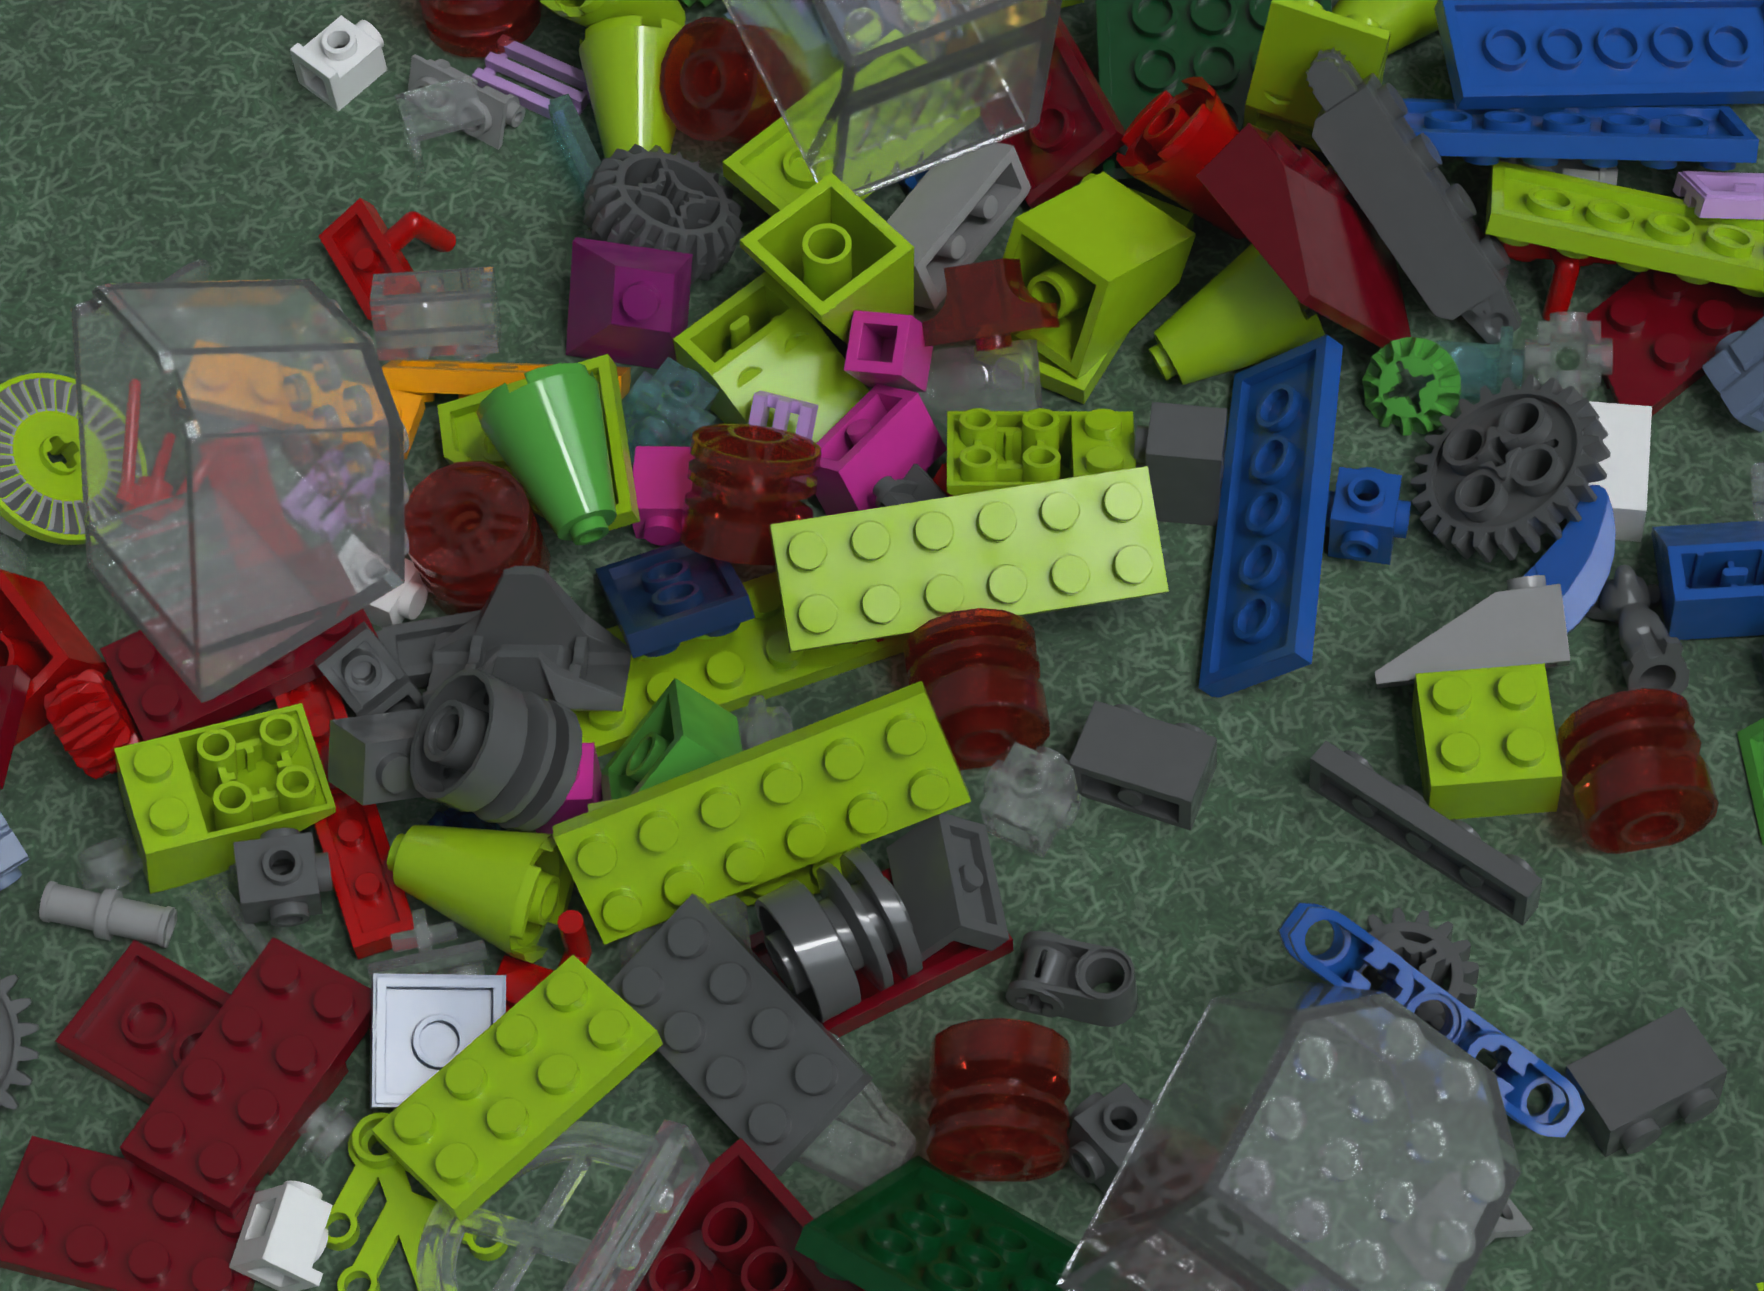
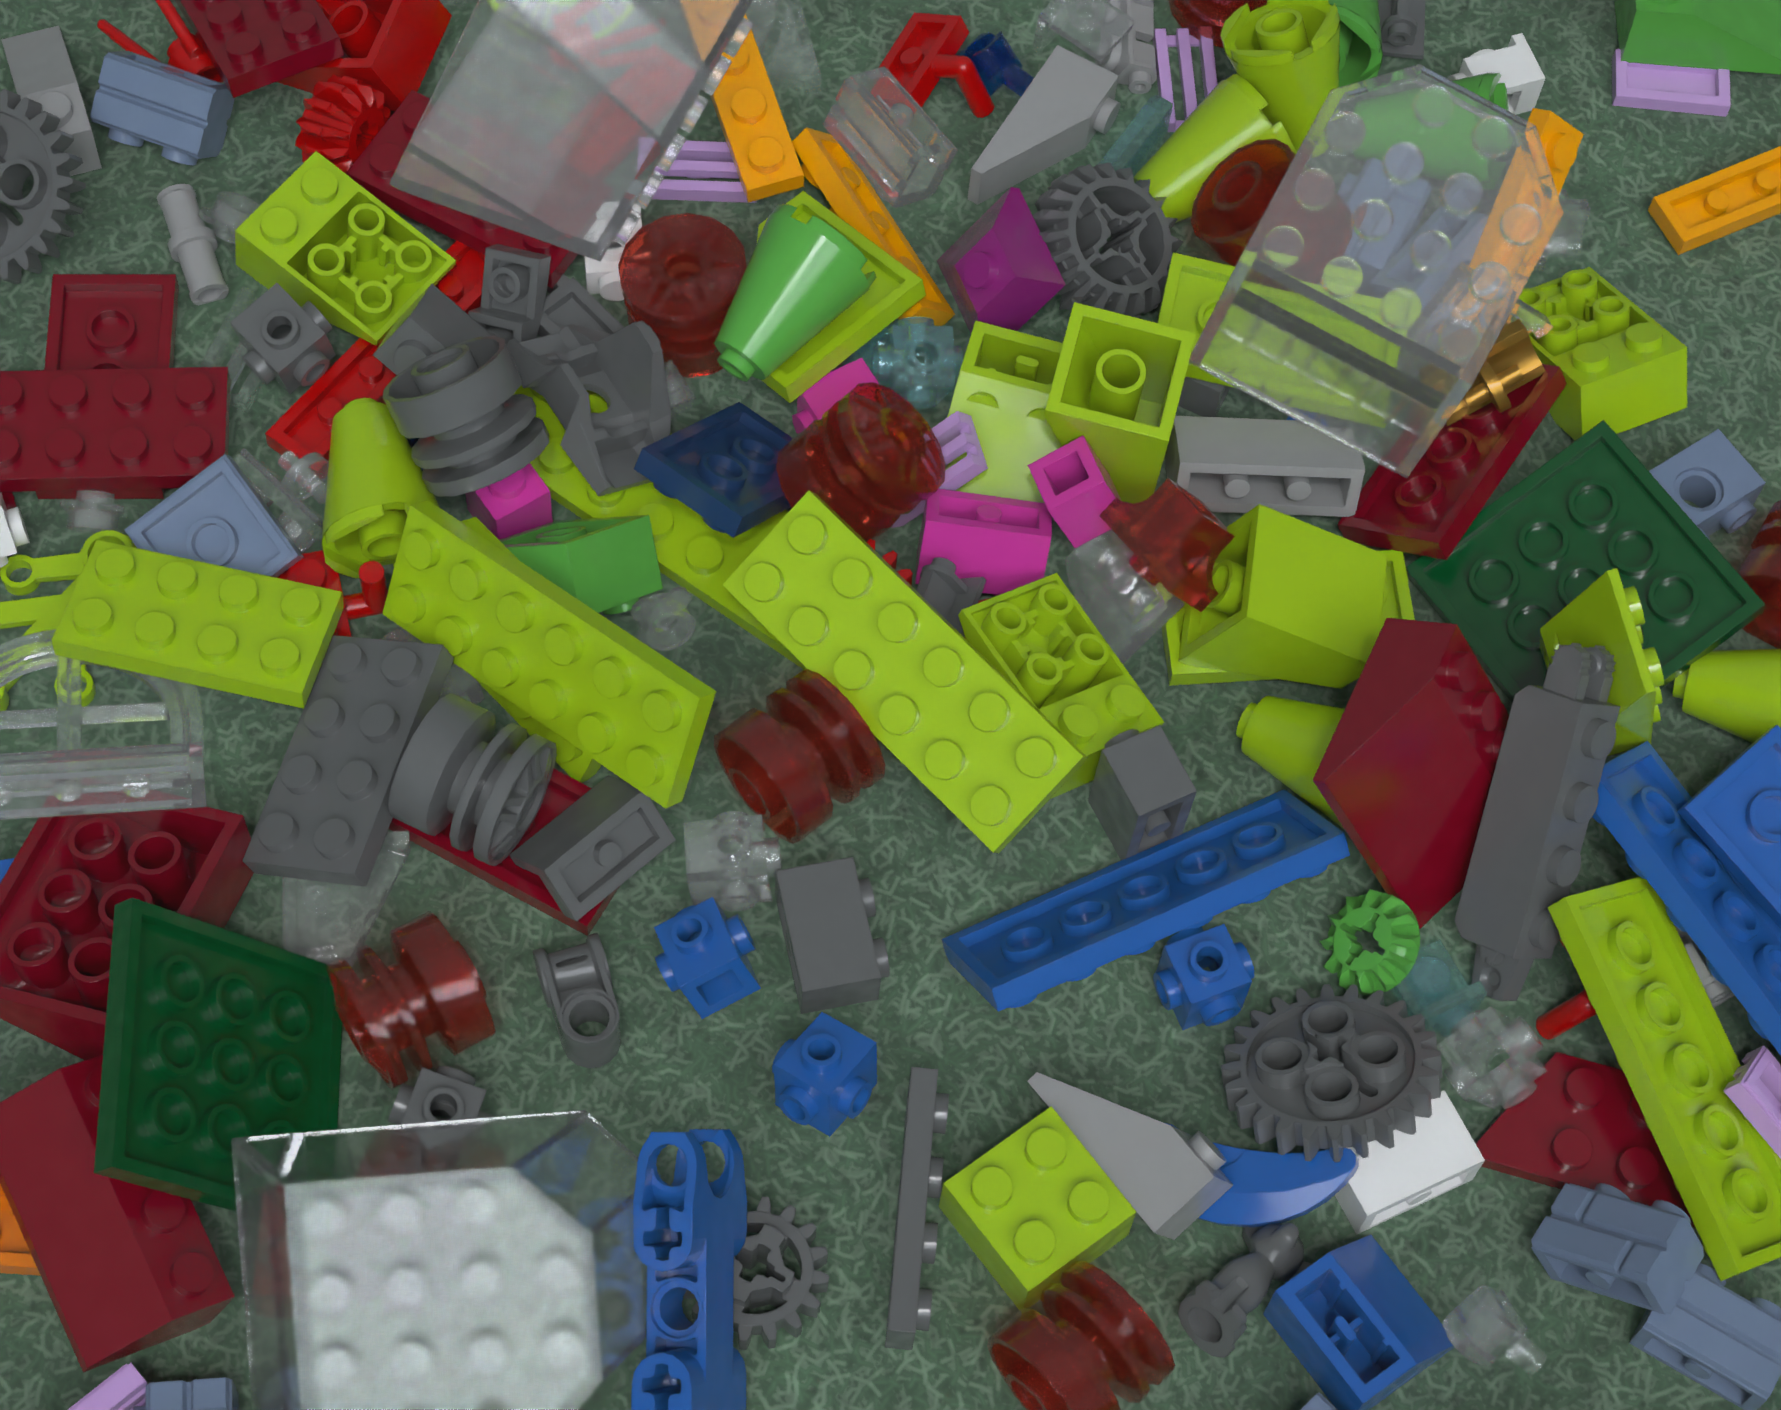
camera: 45 degrees right, 5 degrees up
(419, 198) = (997, 63): none -> clear blue piece
(504, 190) = (1049, 123): none -> light grey slope
(1105, 860) = (707, 957): none -> blue brick
(1175, 141) = (1469, 591): red cone -> none
(1270, 830) = (825, 1074): none -> blue brick

